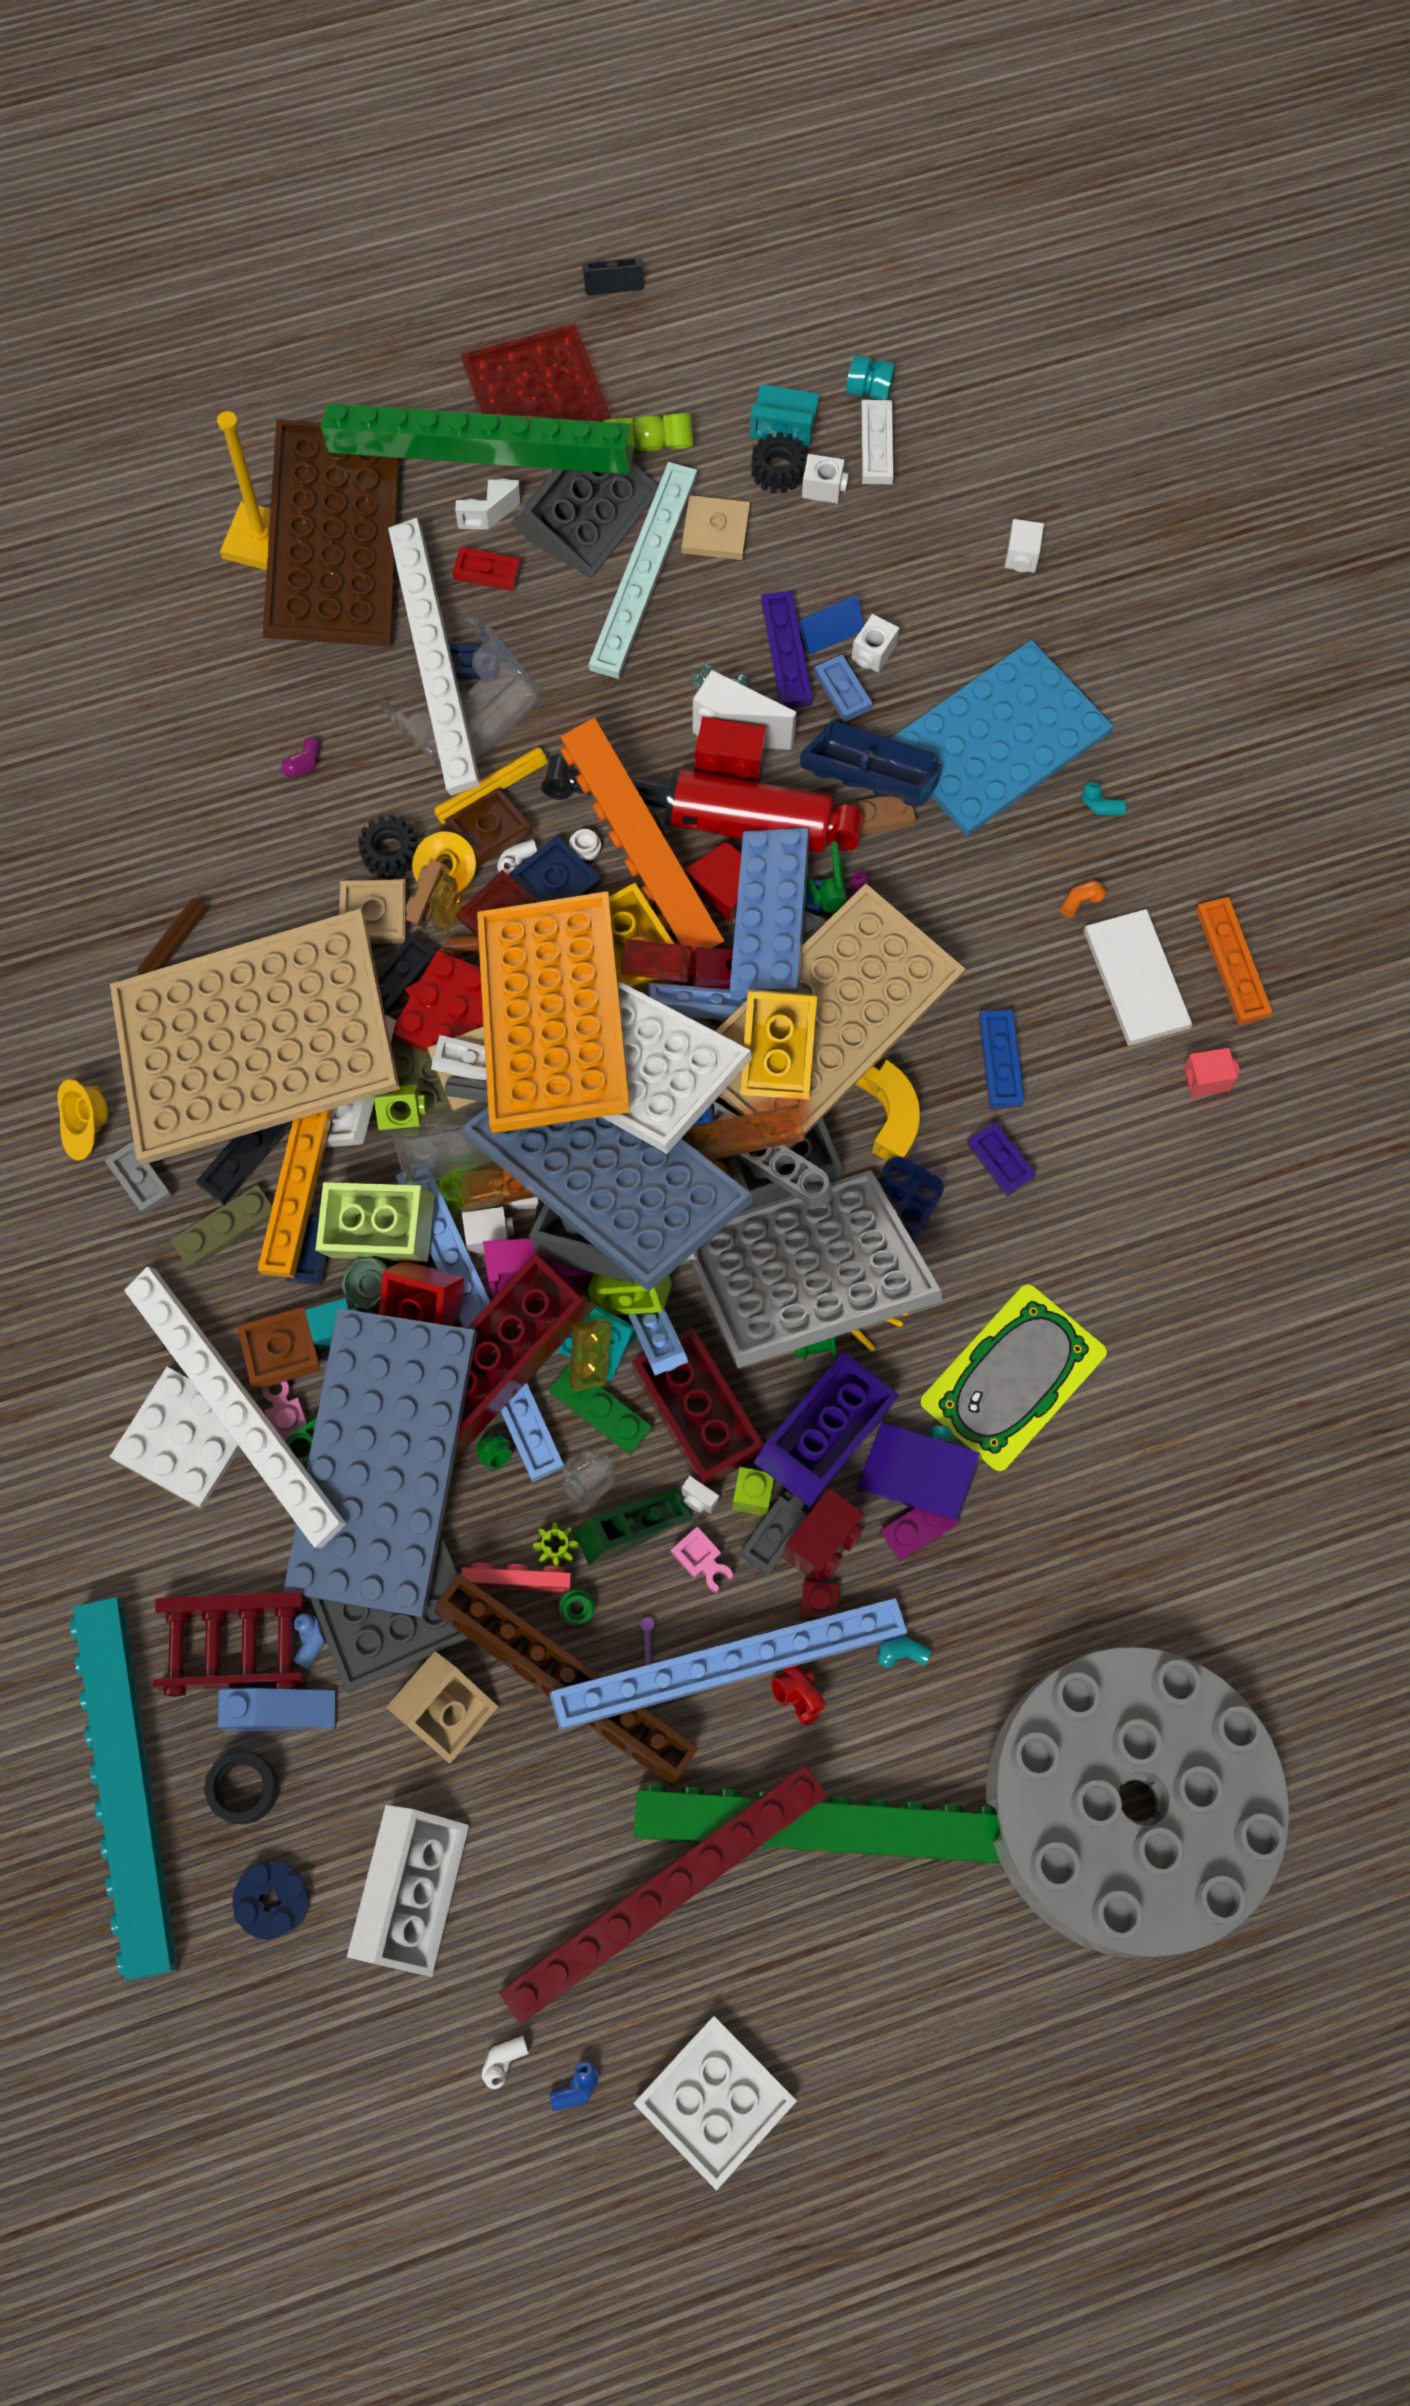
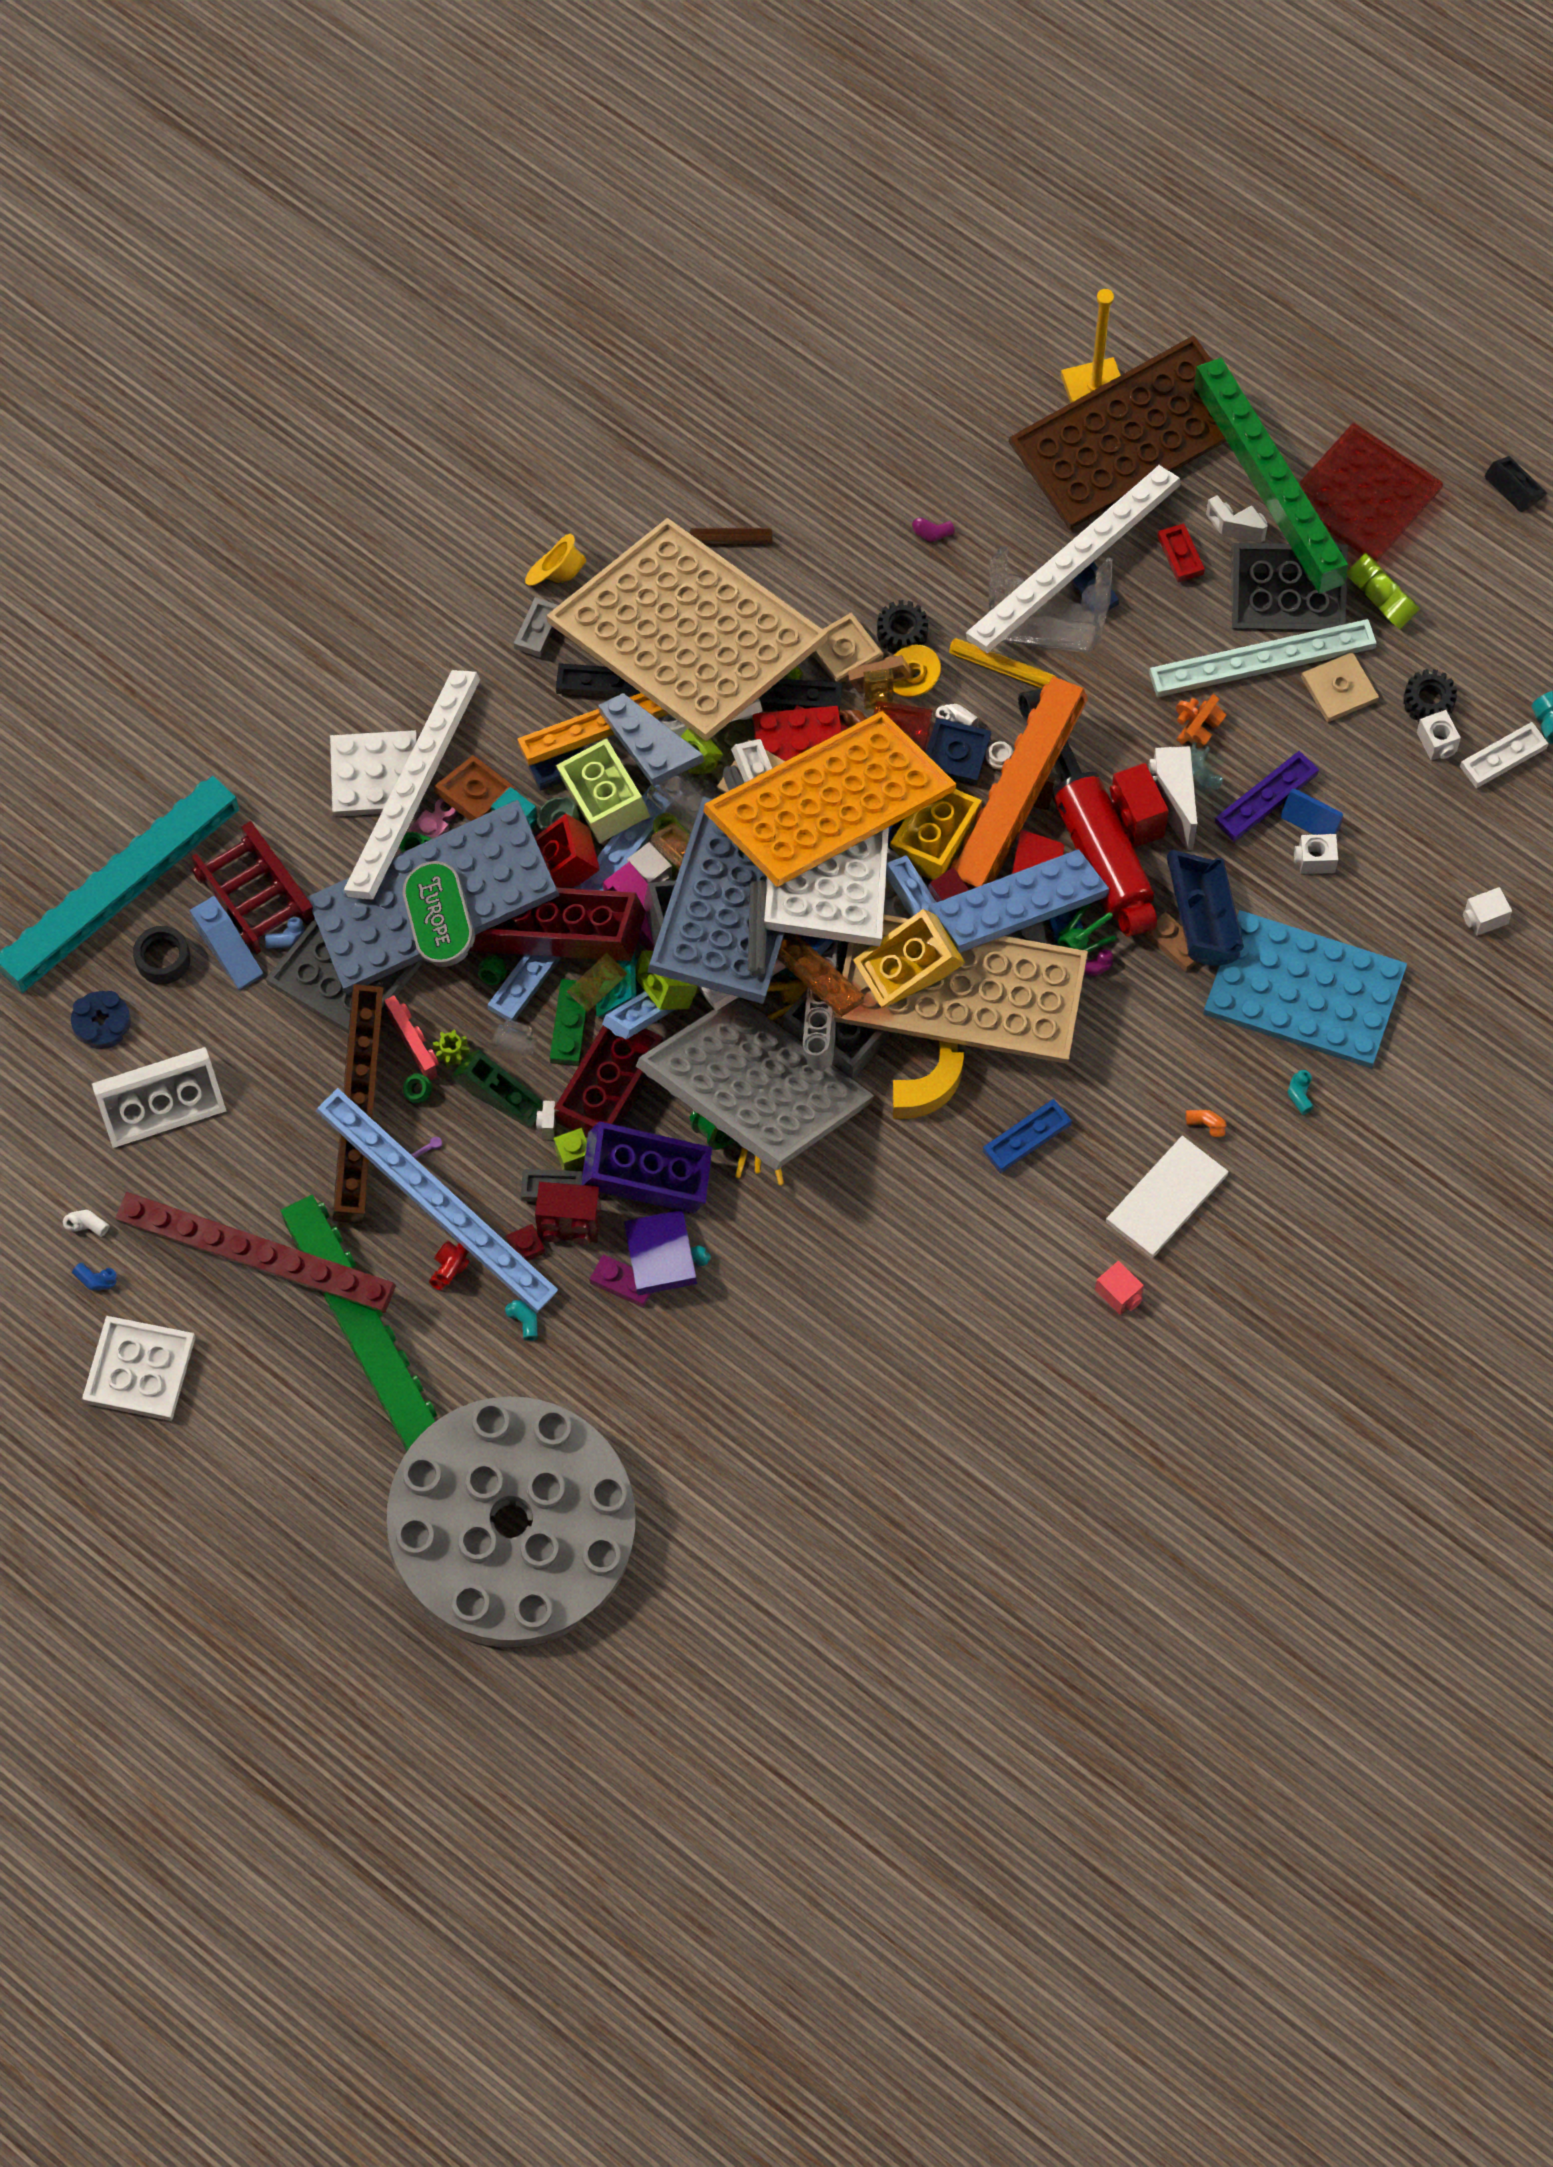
camera: 60 degrees right, 5 degrees down
(223, 1227) = (537, 701): olive plate -> none
(359, 1143) = (648, 741): none -> sand blue wing
(414, 1465) = (438, 913): none -> green tile
(442, 1707) = (293, 1044): tan slope -> none
(490, 825) = (967, 682): reddish brown tile -> none
(657, 960) = (925, 848): clear red plate -> none
(665, 1157) = (757, 929): none -> dark grey axle
(667, 657) = (1206, 712): none -> orange hips
(698, 1556) = (504, 1145): bright pink plate -> none
(784, 412) = (1477, 675): teal bracket -> none
(843, 688) = (1262, 854): medium blue plate -> none
(908, 1193) = (863, 1134): clear blue beam -> none
(1001, 1159) = (945, 1179): dark purple plate -> none
(1013, 1377) = (782, 1284): sticker -> none
(1233, 961) = (1228, 1257): orange plate -> none

